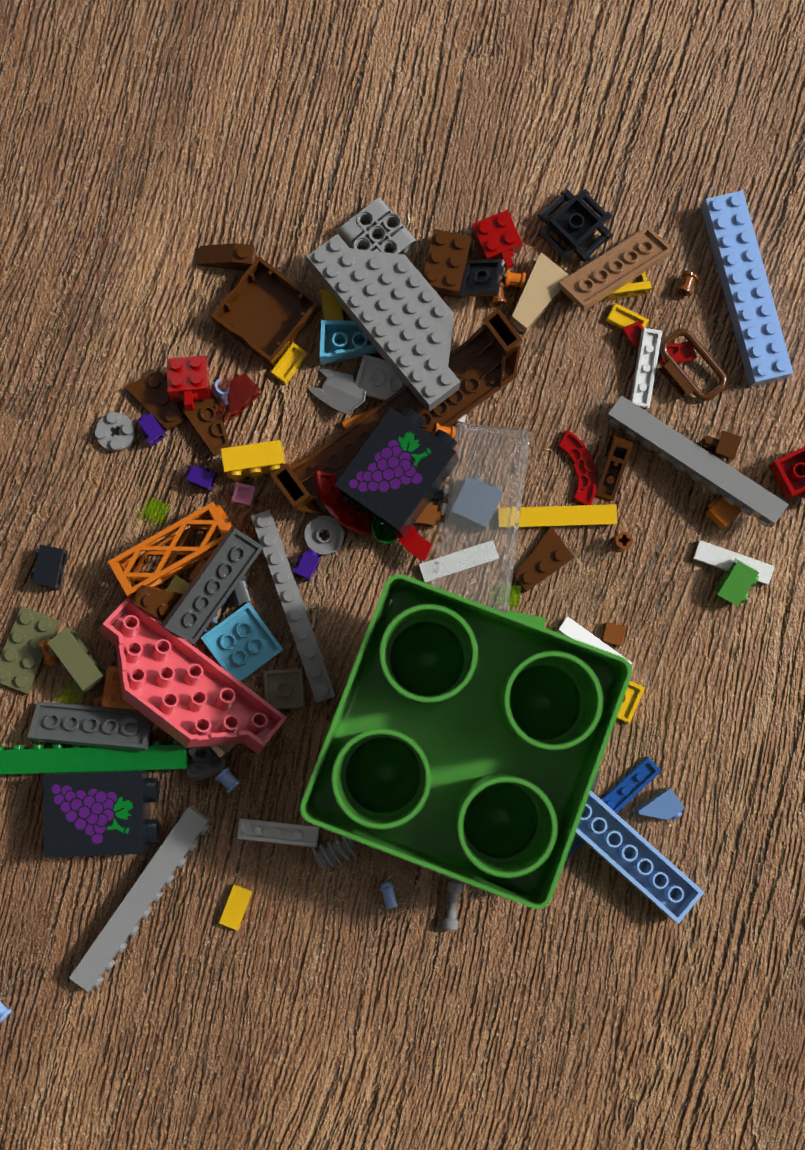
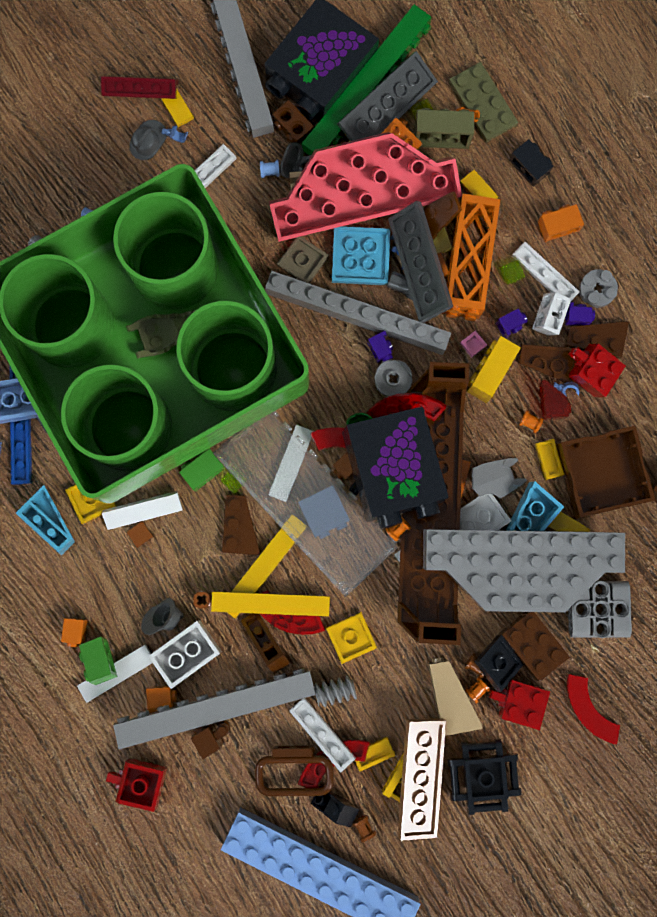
camera: 125 degrees right, 0 degrees up
(83, 503) = (560, 222): none -> orange brick
(106, 593) = (477, 186): none -> yellow tile
(136, 483) = (543, 271): none -> white tile
(167, 791) = (296, 122): none -> reddish brown brick
(169, 450) = (551, 313): none -> white brick
(244, 952) = (139, 87): none -> dark red fence
(261, 886) = (175, 135): none -> medium blue piece
(271, 400) = (531, 421): none -> orange bush
(284, 907) = (147, 140): none -> dark grey piece
(446, 733) = (158, 332): none -> olive animal
(463, 188) = (586, 713): none -> red tile
(554, 405) = (351, 637): none -> yellow tile
(582, 485) = (270, 603): none -> yellow tile
(605, 384) = (335, 691): none -> light grey piece
(663, 562) = (161, 617): none -> dark grey piece
(667, 714) = (45, 519): none -> medium azure wedge
(675, 519) = (185, 654): none -> white brick
(690, 314) = (336, 808): none -> black slope
(730, 621) = (74, 631): none -> orange brick

